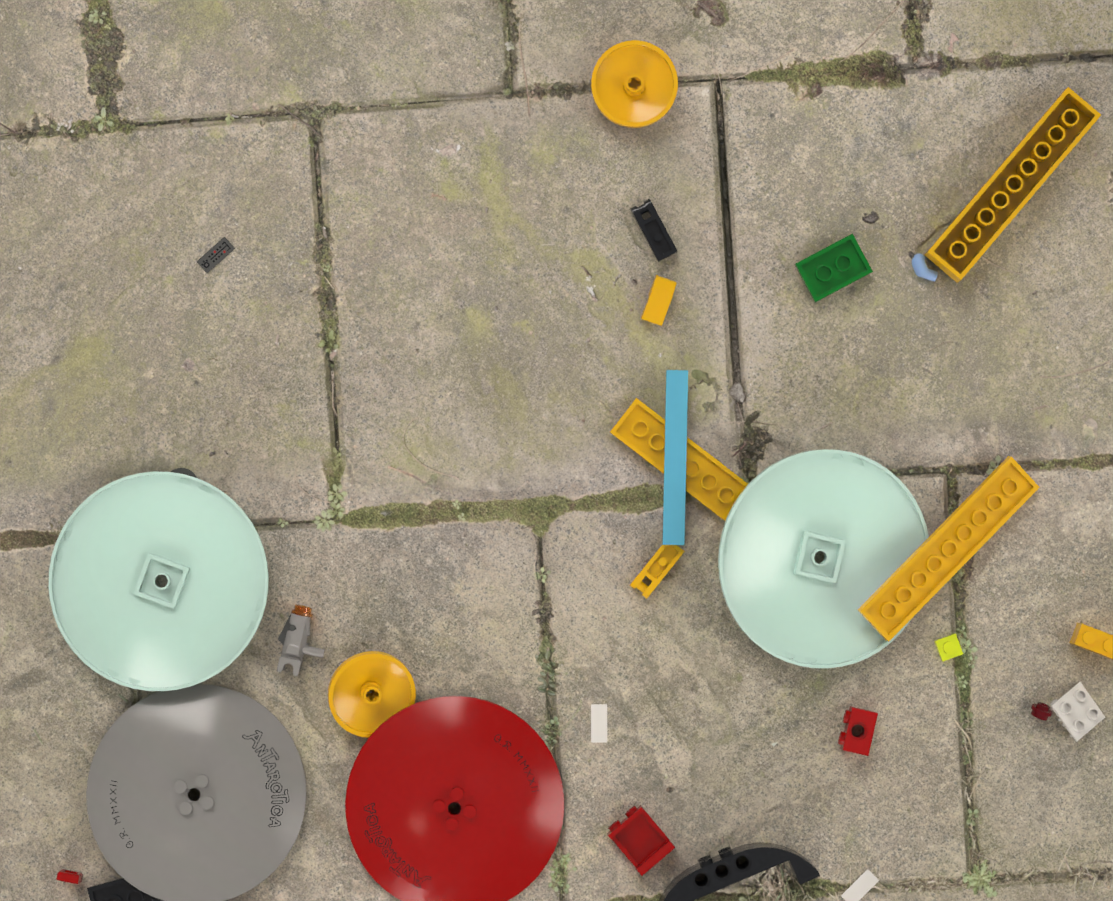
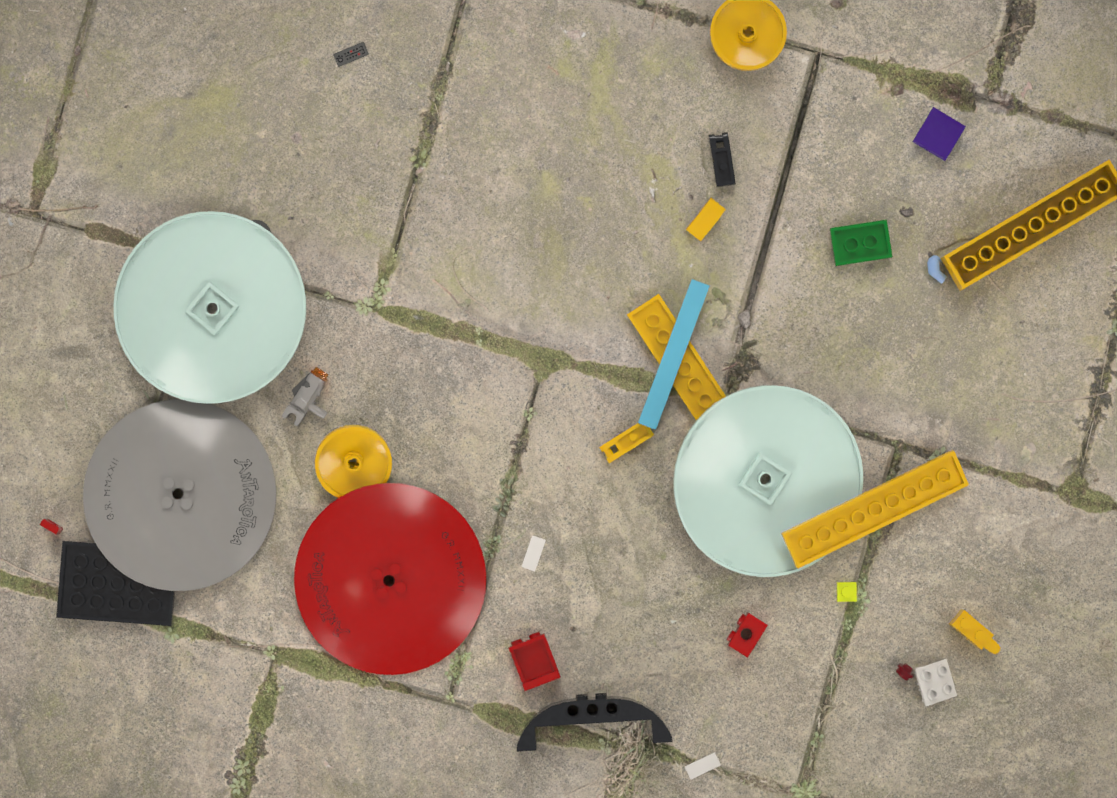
camera: 25 degrees right, 0 degrees up
(876, 122) = (939, 133): none -> dark purple slope

